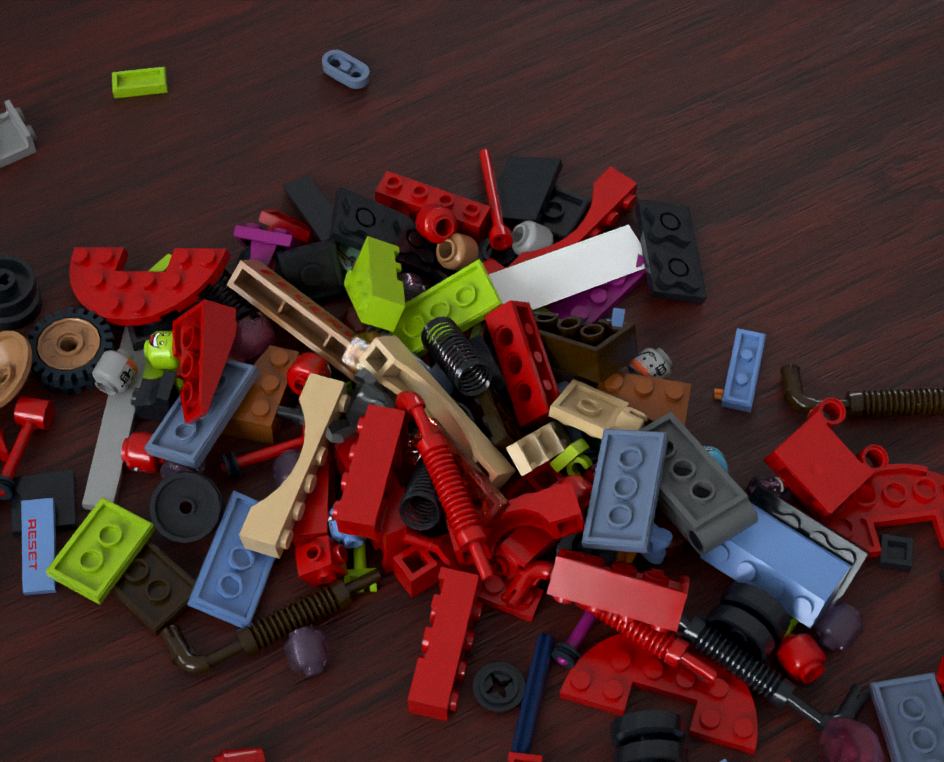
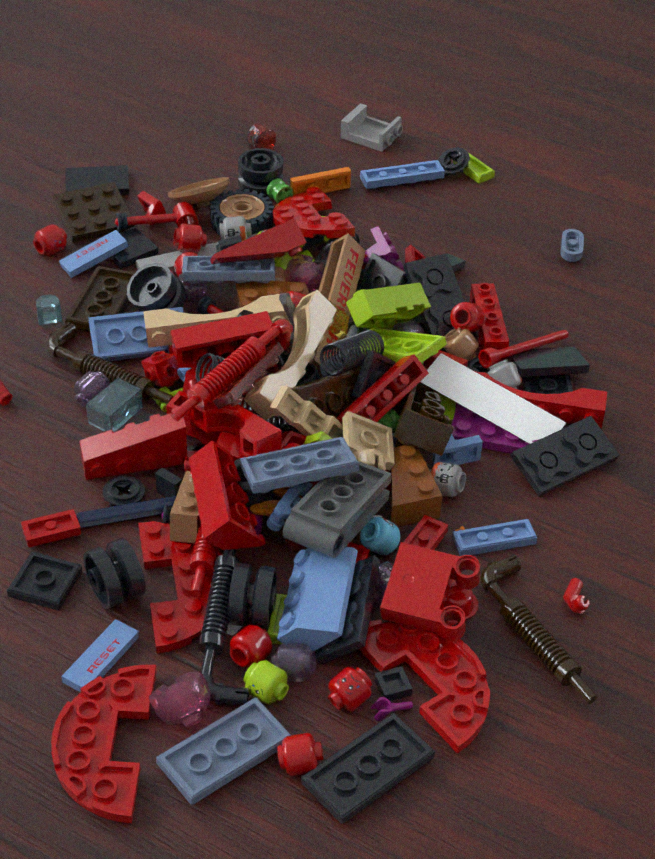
camera: 60 degrees right, 15 degrees down
(53, 290) = (279, 190): none -> bright green wheel
(67, 240) = (328, 181): none -> orange tile
(95, 426) = (189, 238): none -> red head
(100, 550) = (102, 274): lime tile -> none
(106, 155) = (402, 174): none -> medium blue plate
(114, 85) = (456, 154): none -> black gear
(121, 642) = (48, 309): none -> clear light blue brick
(352, 638) = (114, 405): none -> clear light blue panel
(519, 635) = (167, 483): none -> black tile
(598, 634) = (184, 513): none -> medium nougat arch
(722, 431) = (427, 533): none -> red plate
(851, 664) = (266, 682): none -> lime head
(856, 348) = (573, 598): none -> red arm
(897, 593) = (349, 689): none -> red head
(927, 572) = (384, 707): none -> magenta hand

